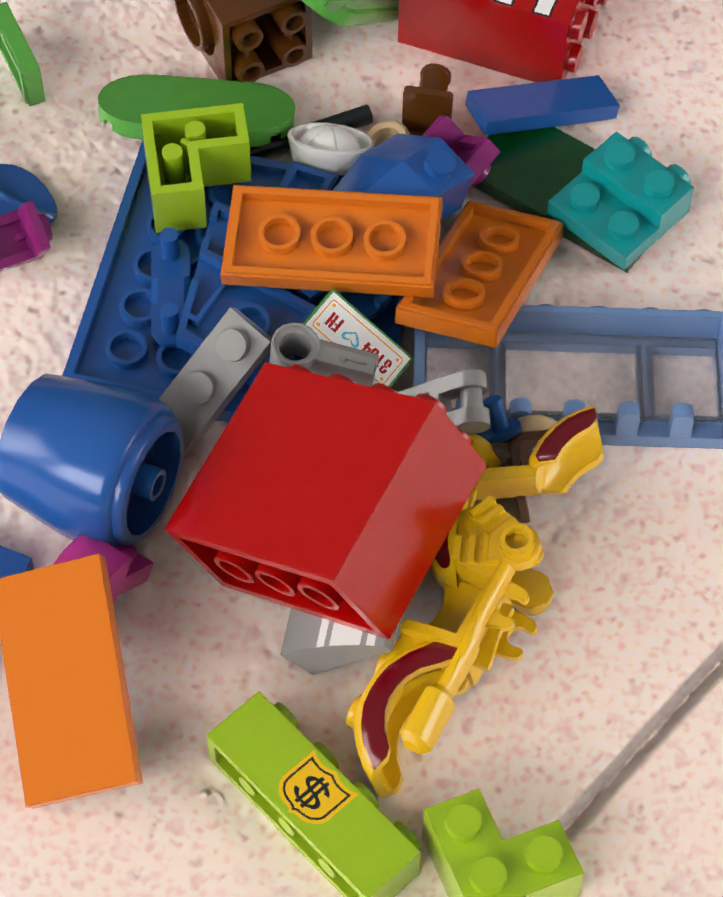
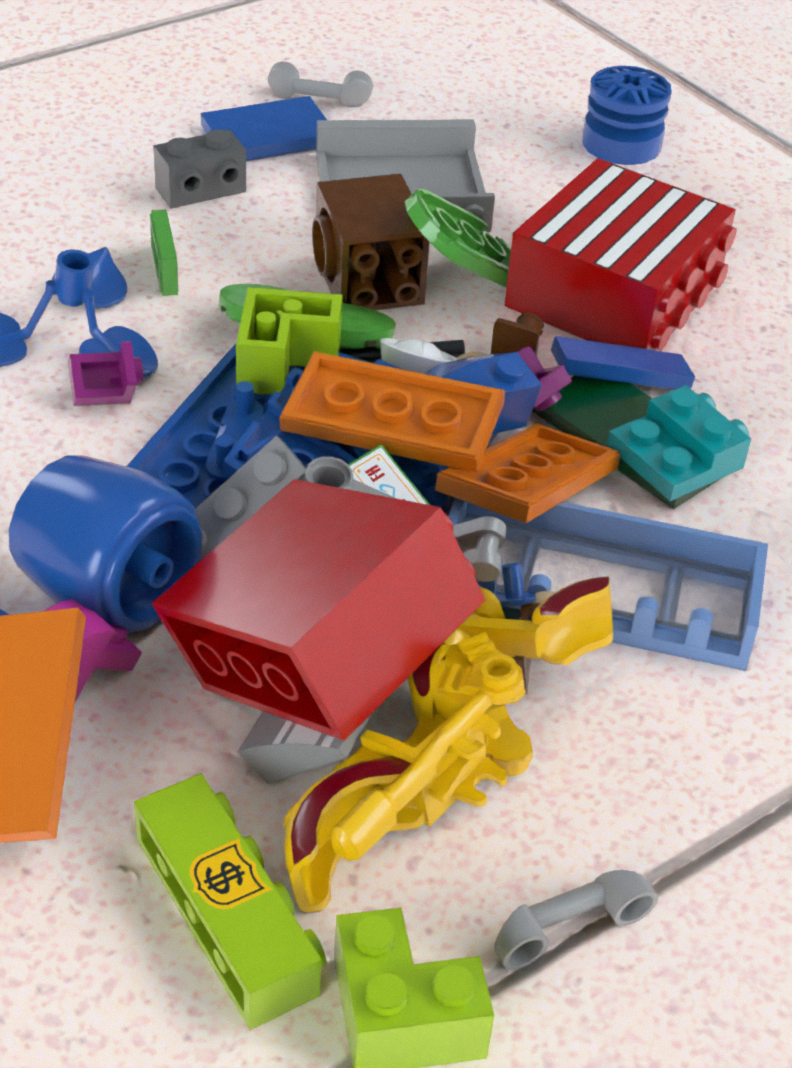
camera: 10 degrees right, 15 degrees down
(666, 722) = (622, 892): none -> light grey bar

